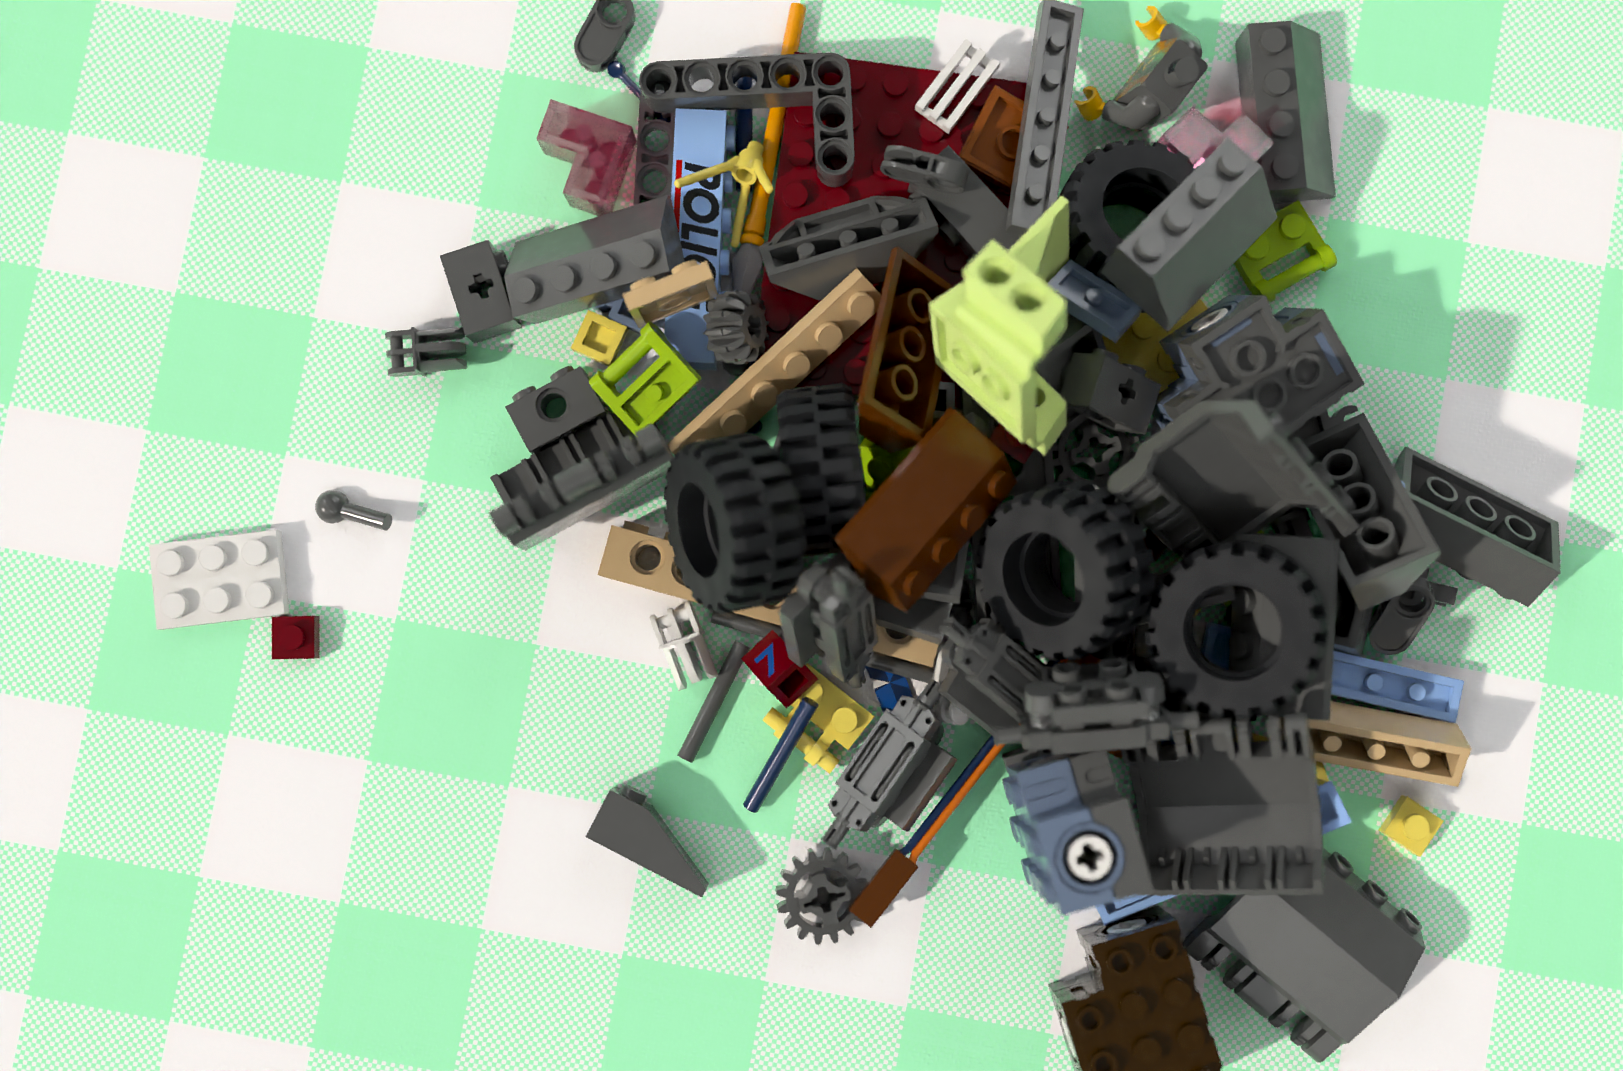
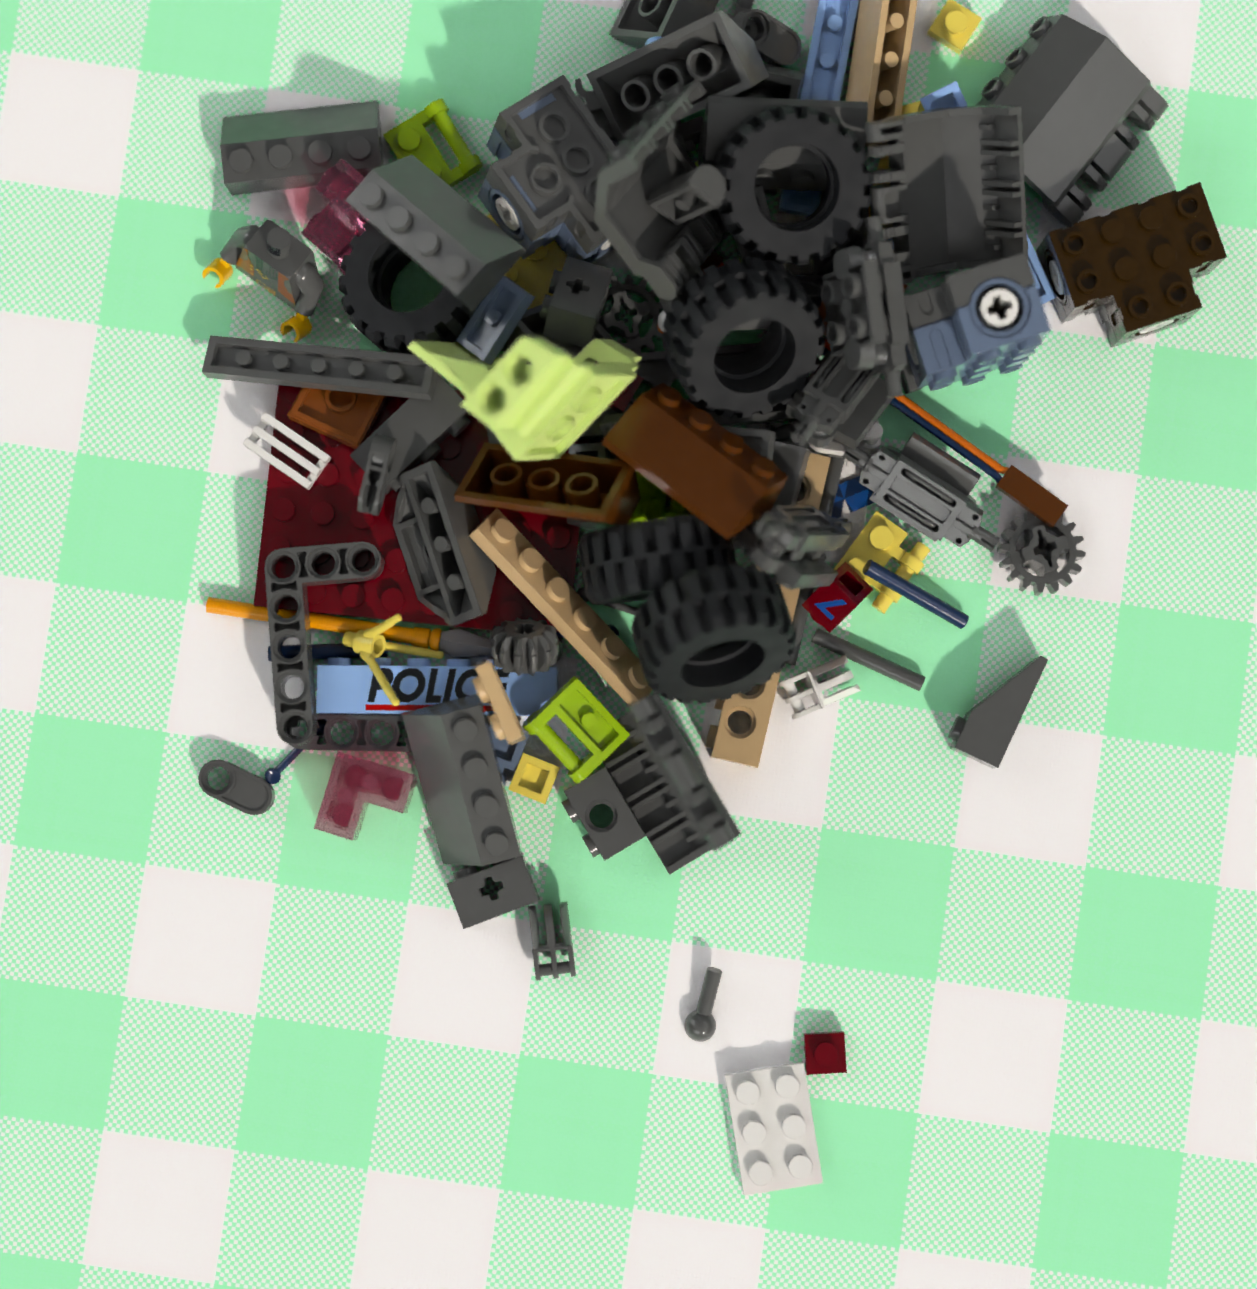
camera: 90 degrees left, 0 degrees up
(1227, 512) = (689, 194): none -> dark grey brick

